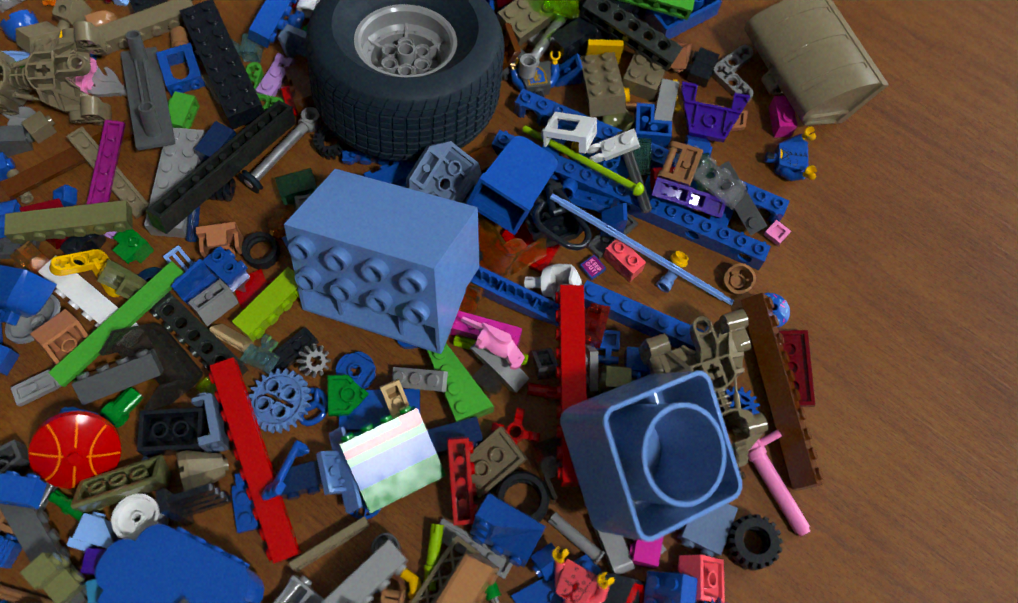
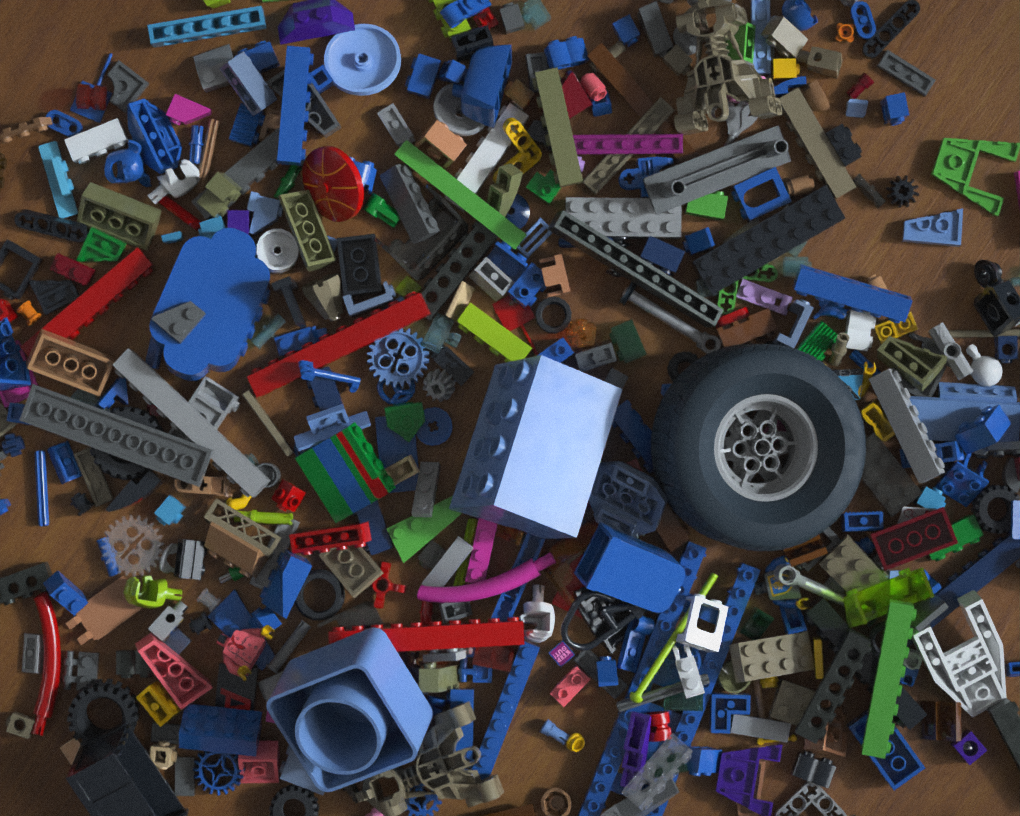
camera: 90 degrees right, 20 degrees up
(44, 194) = (593, 86): none -> coral brick
(141, 163) = (653, 164): none -> blue piece
(210, 112) = (698, 242): none -> blue slope
(228, 538) = (268, 331): none -> clear light blue pin
(412, 526) = (288, 496): none -> red brick
(497, 343) = (459, 563): bright pink animal -> none
(525, 321) = (502, 583): none -> dark pink animal
(570, 97) = (756, 624): none -> clear green slope
(640, 248) = (576, 704): light blue piece -> none
(685, 166) = (661, 745): medium nougat plate -> none

